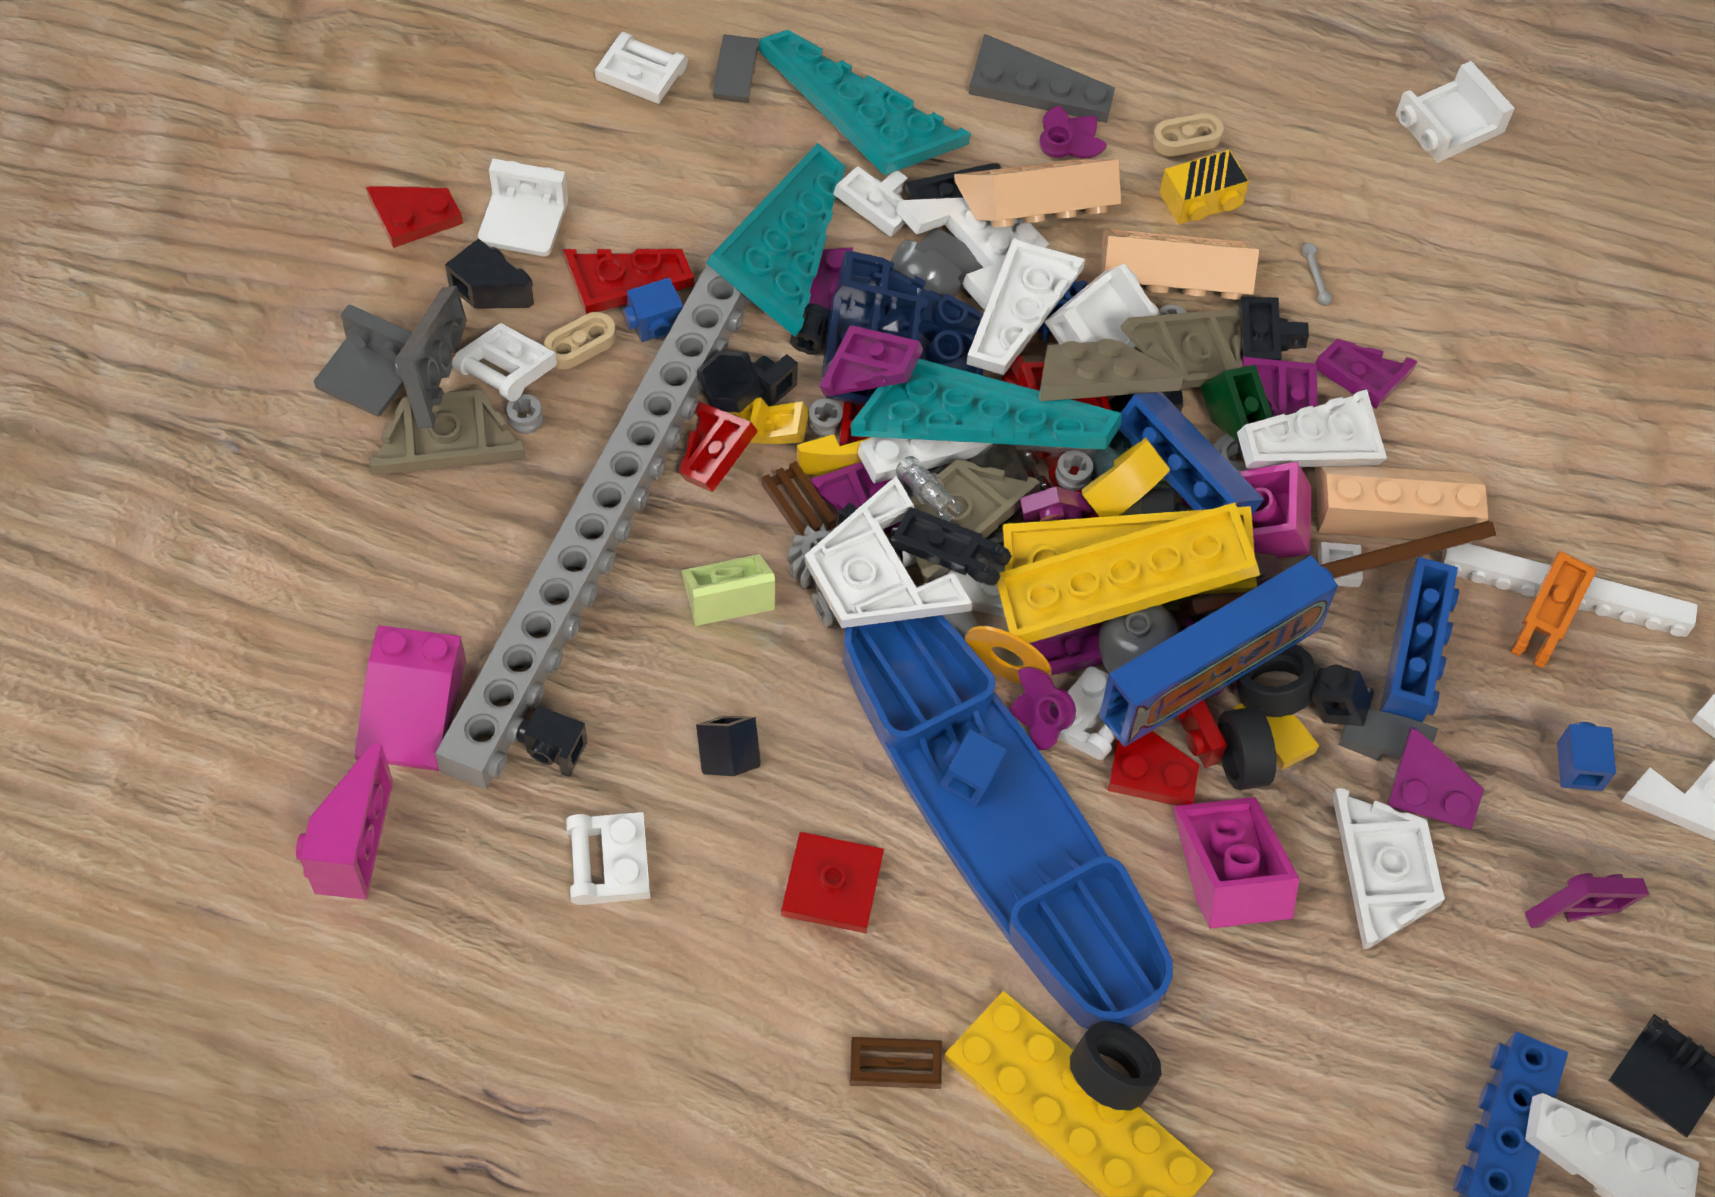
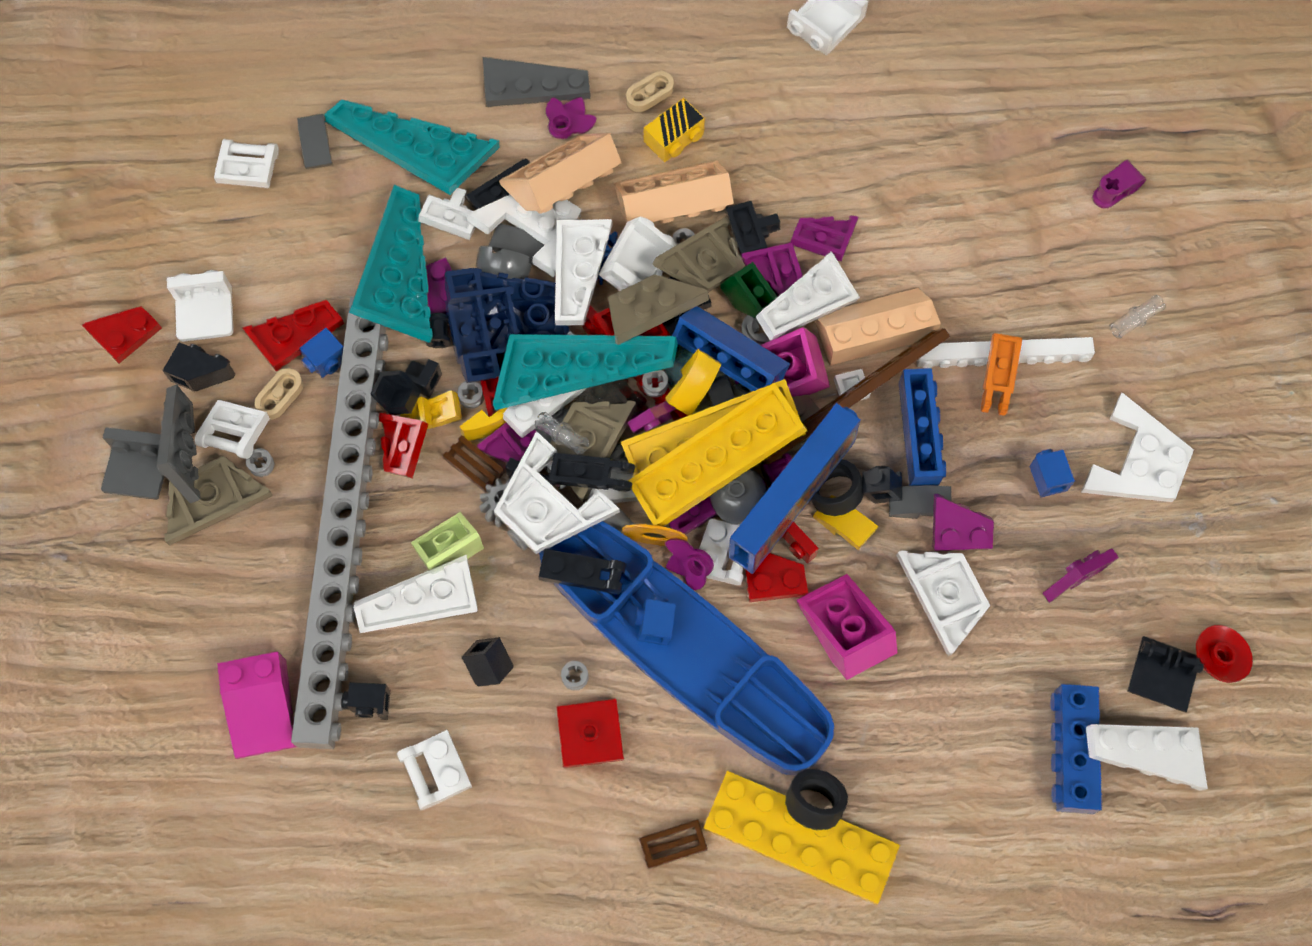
camera: 15 degrees left, 10 degrees up
(347, 829) = (251, 821): dark pink slope -> none
(680, 638) = (425, 597): none -> white wing
(842, 789) = (583, 676): none -> light grey bush
(870, 361) = (489, 350): magenta wing -> none
(894, 668) = (581, 571): none -> black plate
(1250, 748) = (834, 545): black tyre -> none
(1308, 251) = (760, 155): light grey hinge -> none

